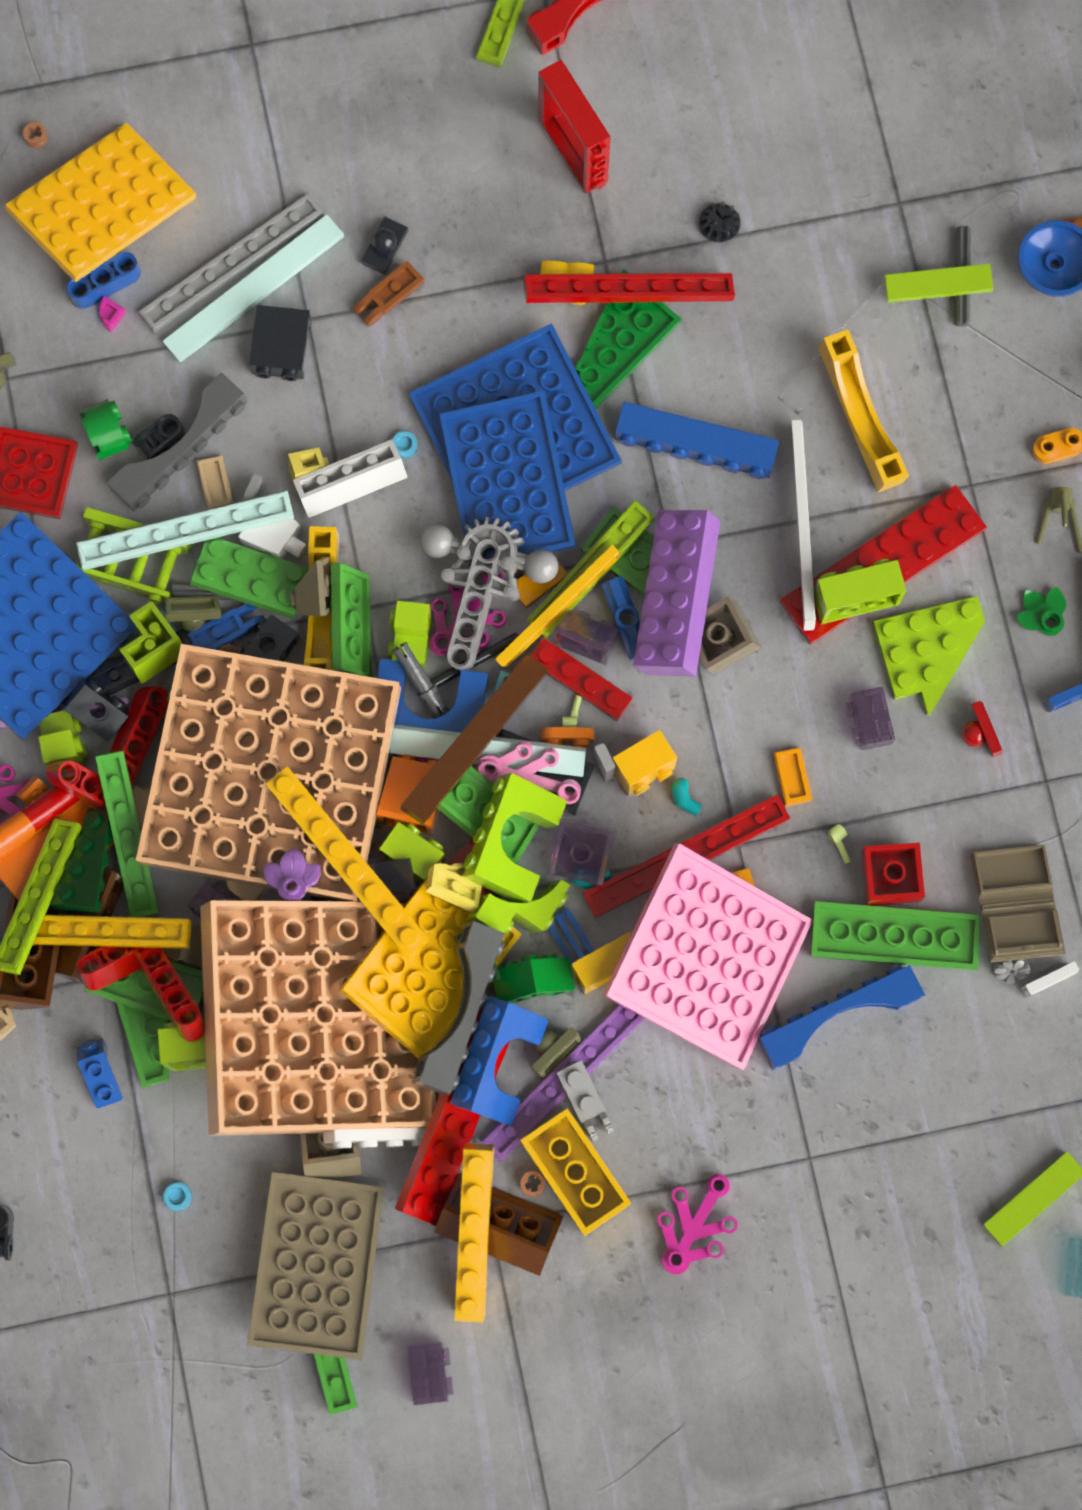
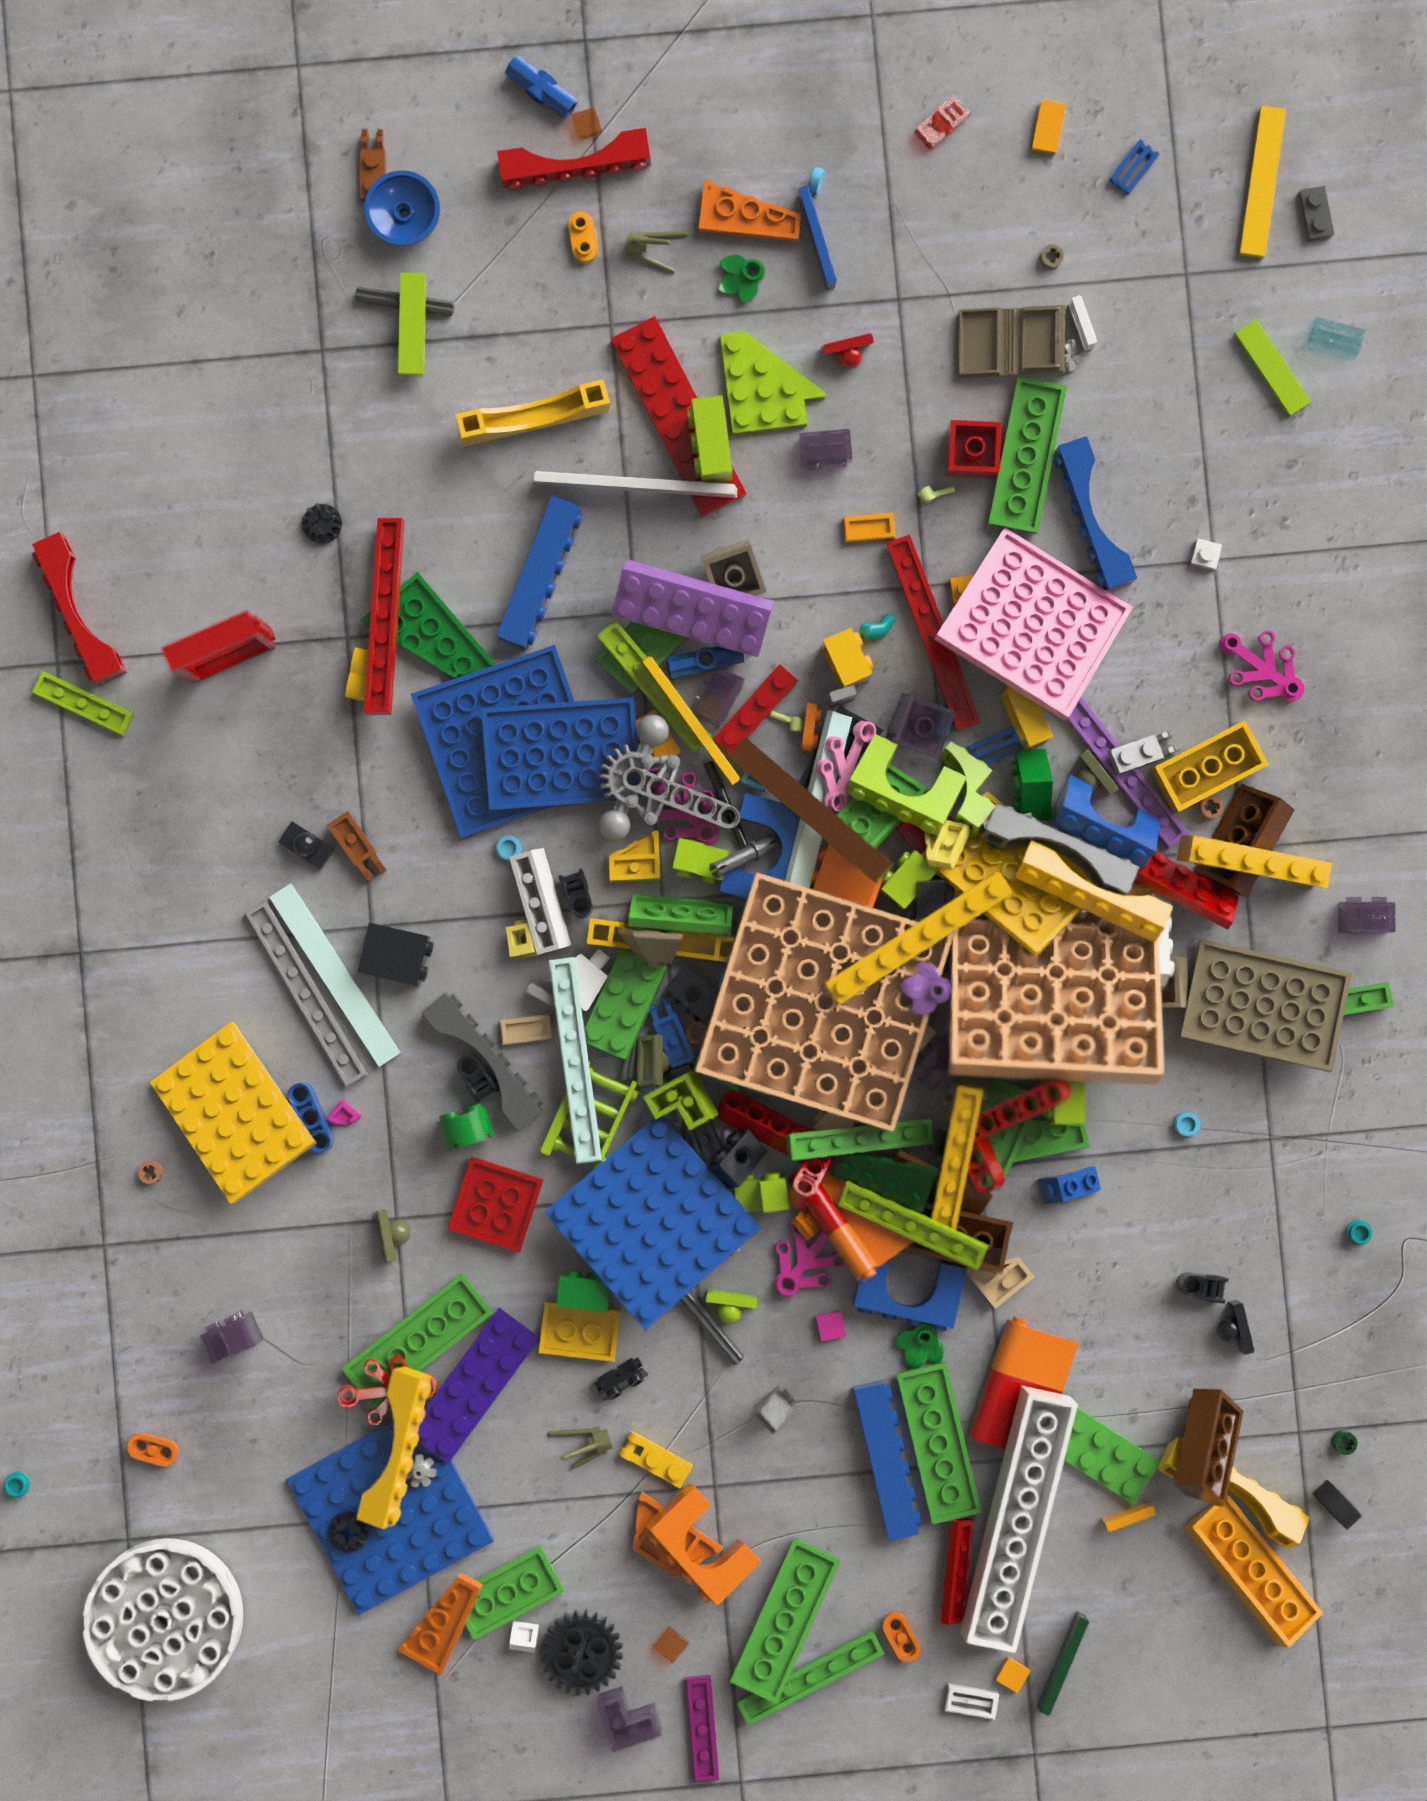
camera: 90 degrees left, 10 degrees up
(72, 1405) = (1359, 1232): none -> teal plate
(364, 515) = (576, 892): none -> black piece
(398, 1100) = (1139, 914): none -> yellow arch
(404, 574) = (637, 861): none -> yellow wing
(814, 1147) = (1205, 554): none -> white plate

